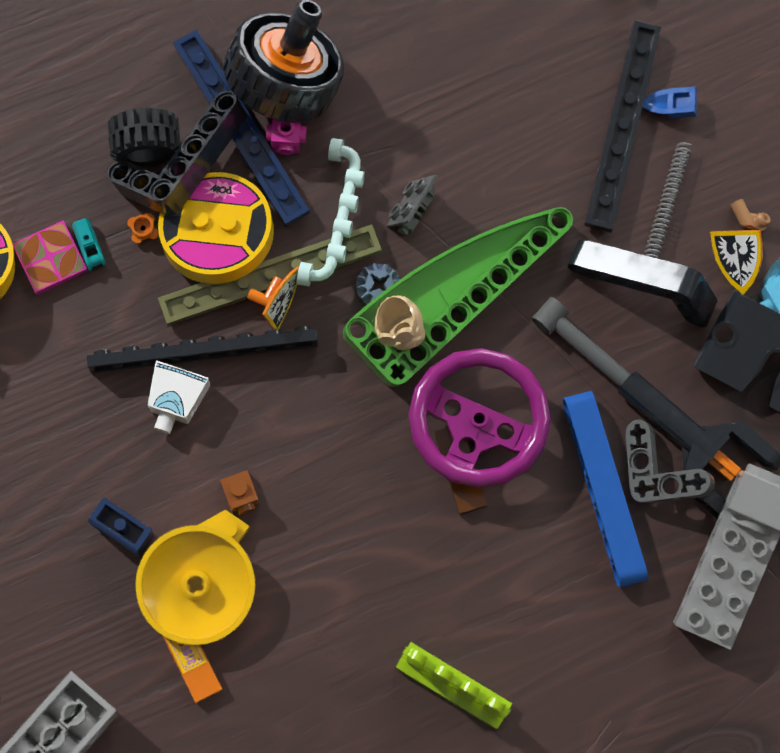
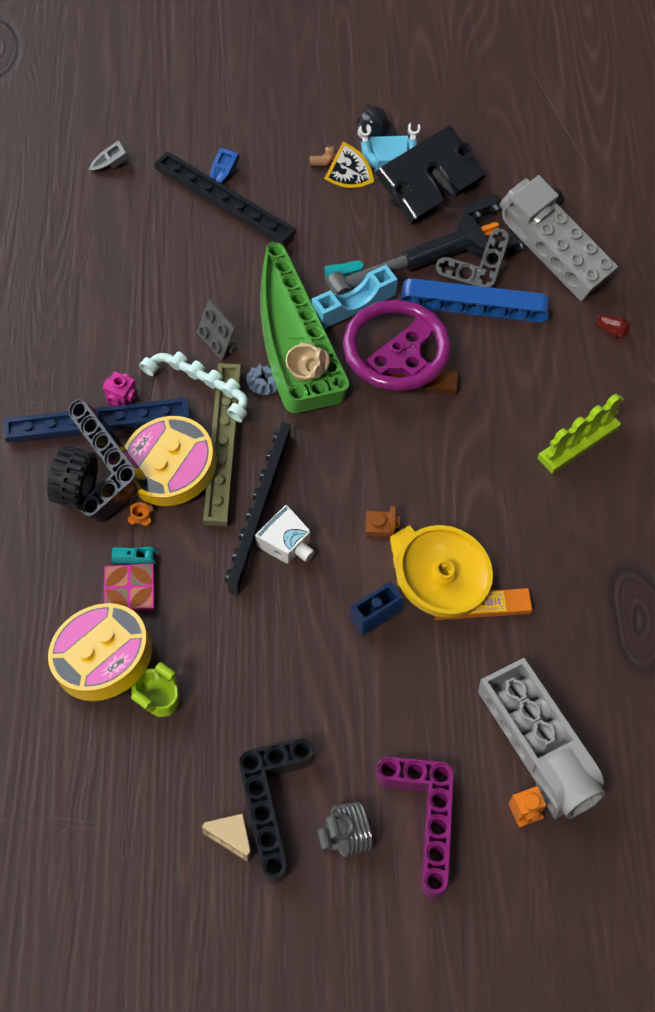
camera: 65 degrees left, 15 degrees down
(277, 298) = (244, 444): shield -> none
(284, 64) = (69, 362): black wheel -> none
(515, 327) = (376, 287): none -> medium azure arch
(578, 312) = (347, 268): none -> teal bar
(645, 674) = (613, 325): none -> clear red cone
(647, 274) = (338, 216): beam -> none
(684, 155) = (294, 198): light grey piece -> none

